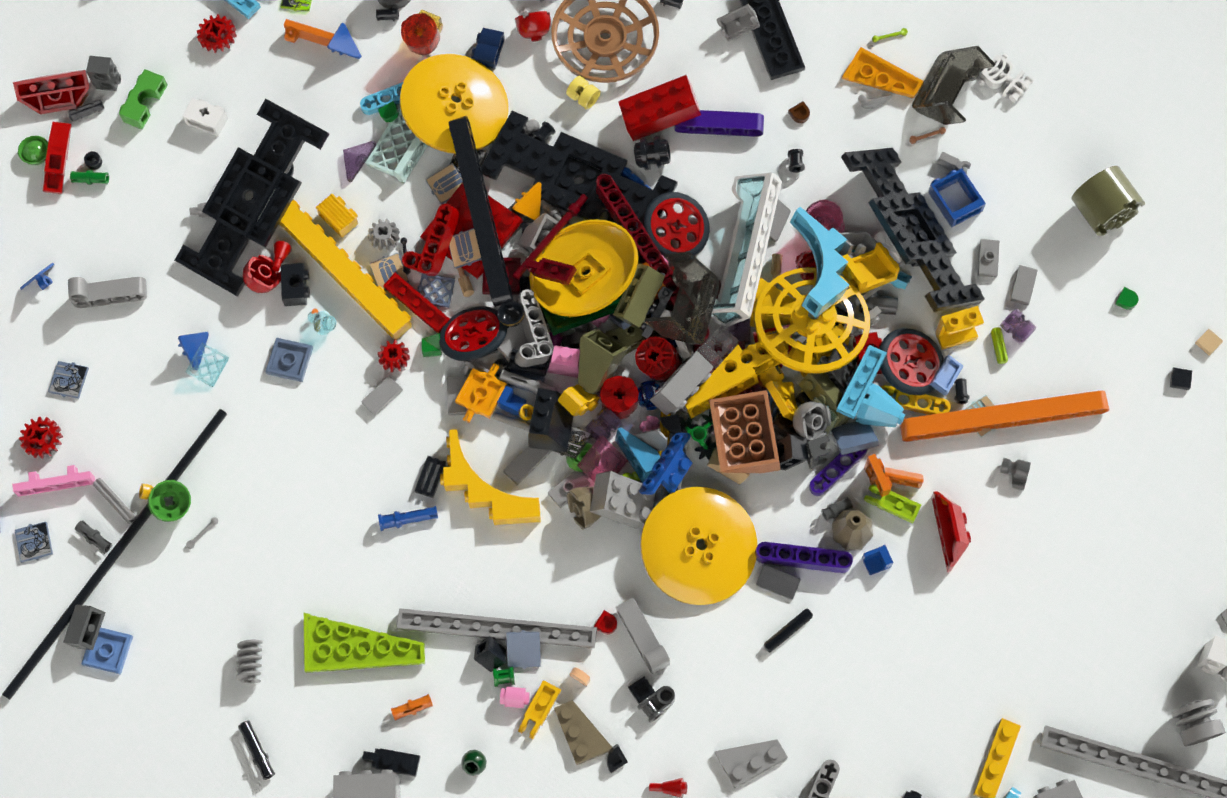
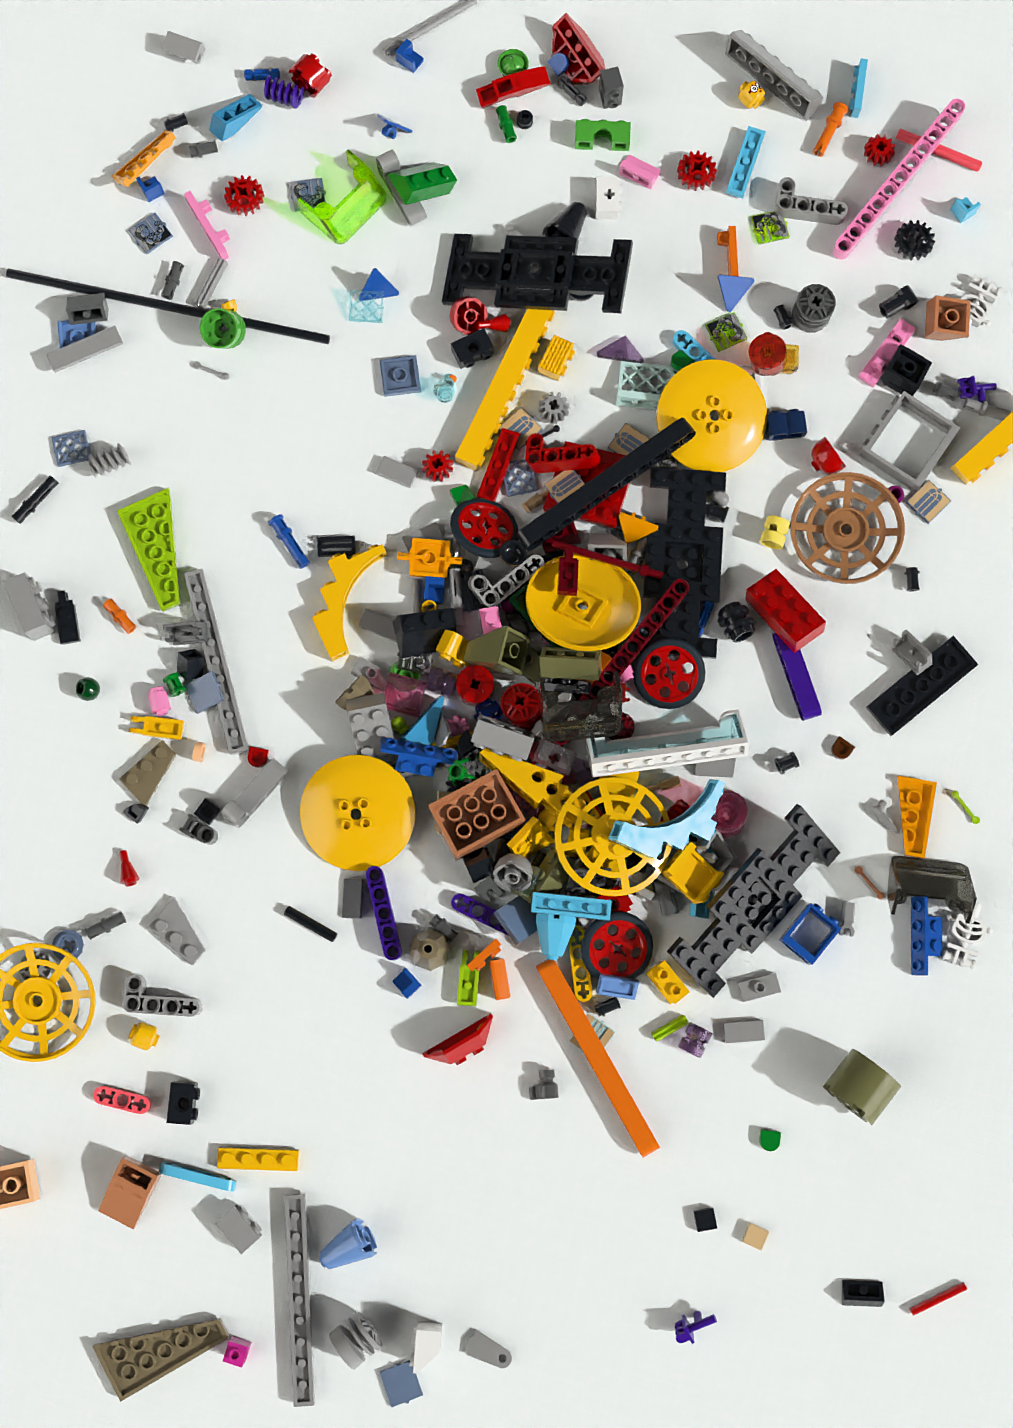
camera: 65 degrees right, 10 degrees up
(54, 110) = (559, 63): none -> blue tile
(111, 266) = (423, 182): none -> green slope
(113, 357) = (354, 210): none -> clear neon green windscreen
(124, 645) = (84, 349): none -> light grey tile
(193, 82) = (639, 171): none -> bright pink panel
(214, 157) = (568, 222): none -> black cone
(232, 698) = (71, 448): none -> sand blue window
(378, 66) = (726, 332): none -> piece
(458, 644) = (186, 633): none -> dark grey hinge
(991, 108) = (925, 936): none -> blue bracket
(1109, 701) = (349, 1246): none -> medium blue cone

